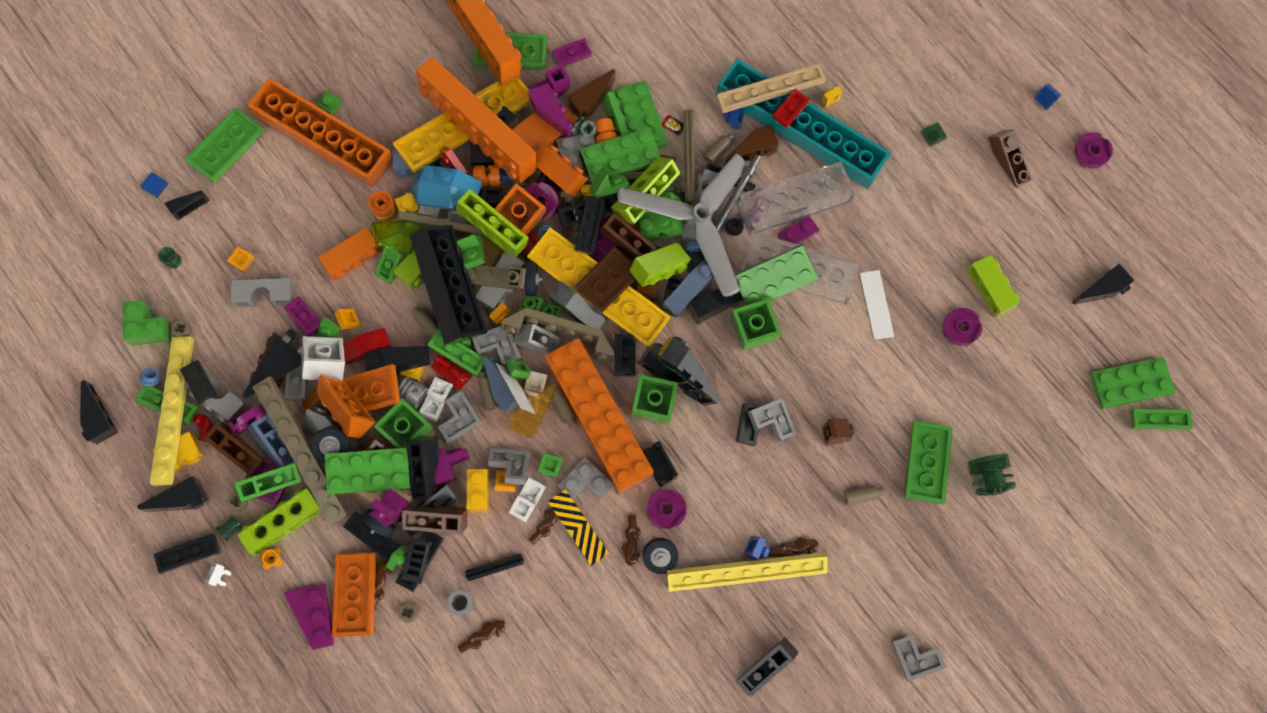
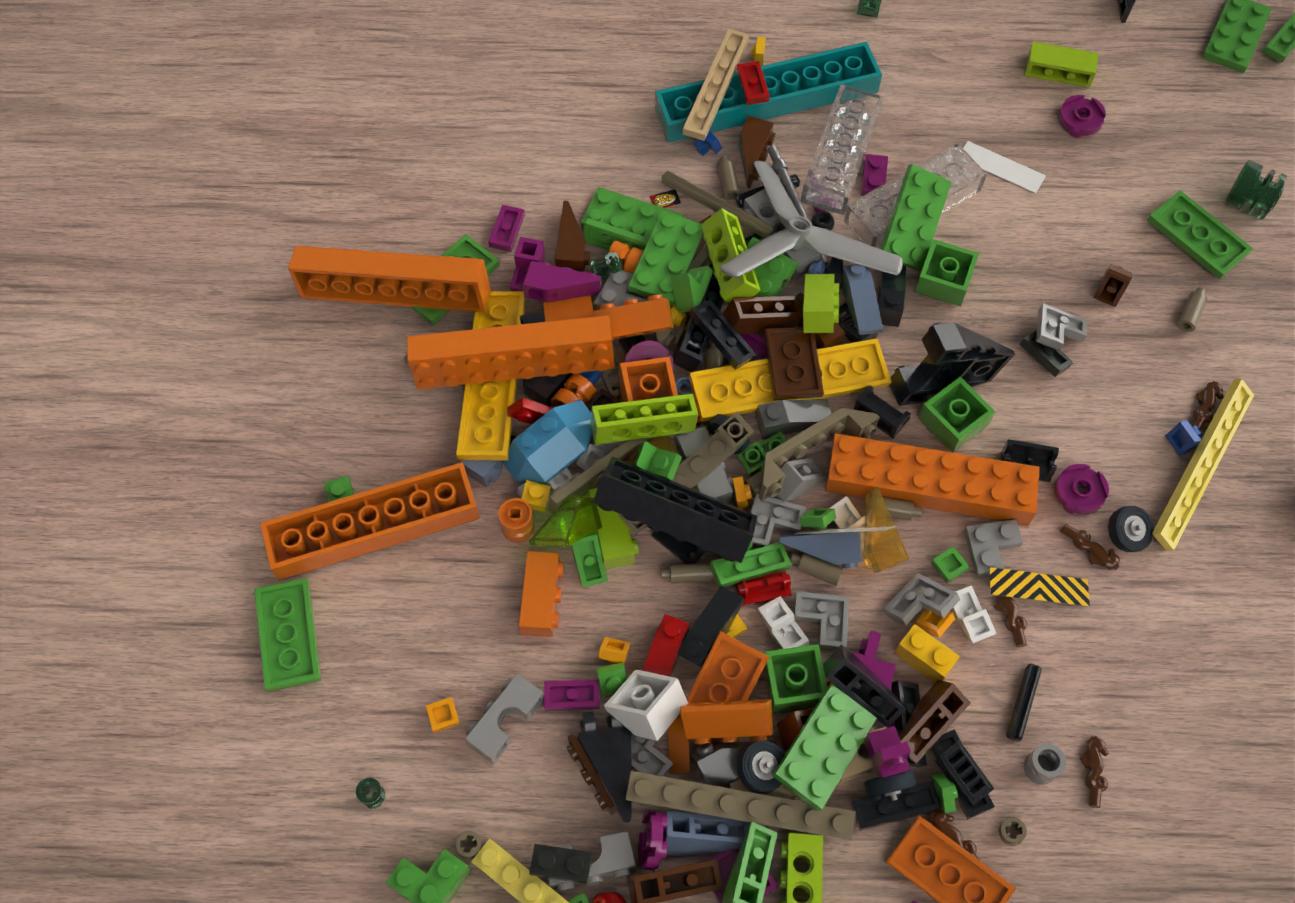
camera: 45 degrees left, 10 degrees down
(154, 185) = (261, 749): blue tile -> none
(186, 204) = (320, 731): black slope -> none
(412, 392) = (760, 638): light grey piece -> none

